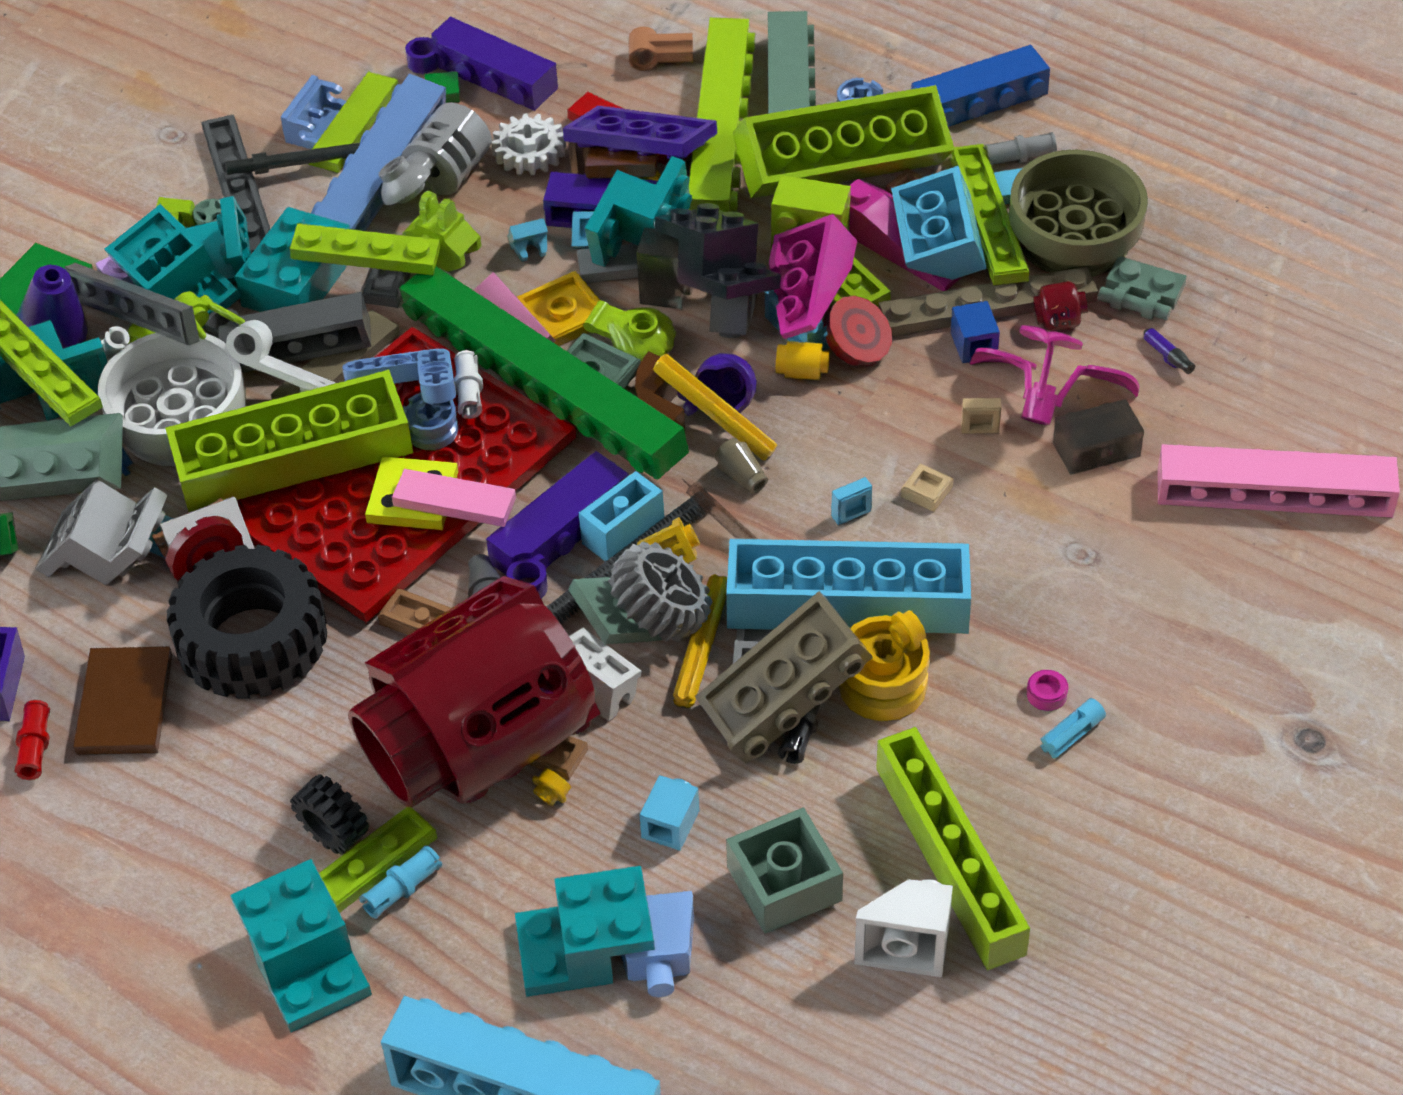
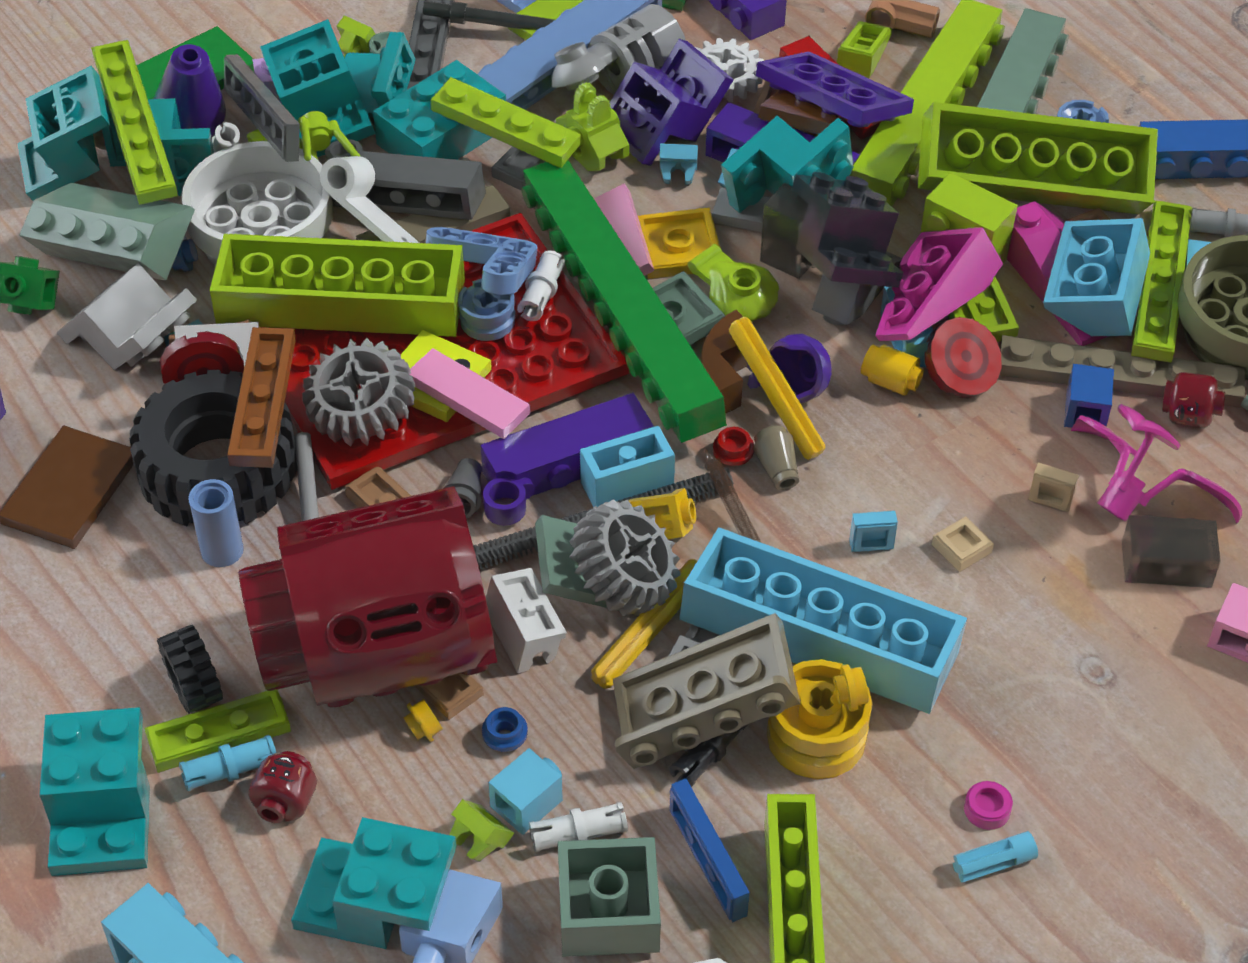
camera: 20 degrees right, 0 degrees up
(281, 559) = (261, 397): none -> dark orange plate
(286, 683) = (216, 523): none -> medium blue pin
(342, 546) = (382, 399): none -> light grey gear
(345, 625) = (306, 476): none -> light grey bar
(460, 882) = (282, 787): none -> dark red head
(497, 184) = (668, 100): none -> dark purple bracket
(624, 761) = (504, 719): none -> blue plate
(640, 87) = (864, 48): none -> lime slope
(655, 857) = (486, 828): none -> lime tile
(699, 468) = (733, 446): none -> red plate
(725, 825) = (578, 826): none -> white pin
(844, 805) = (709, 851): none -> blue tile

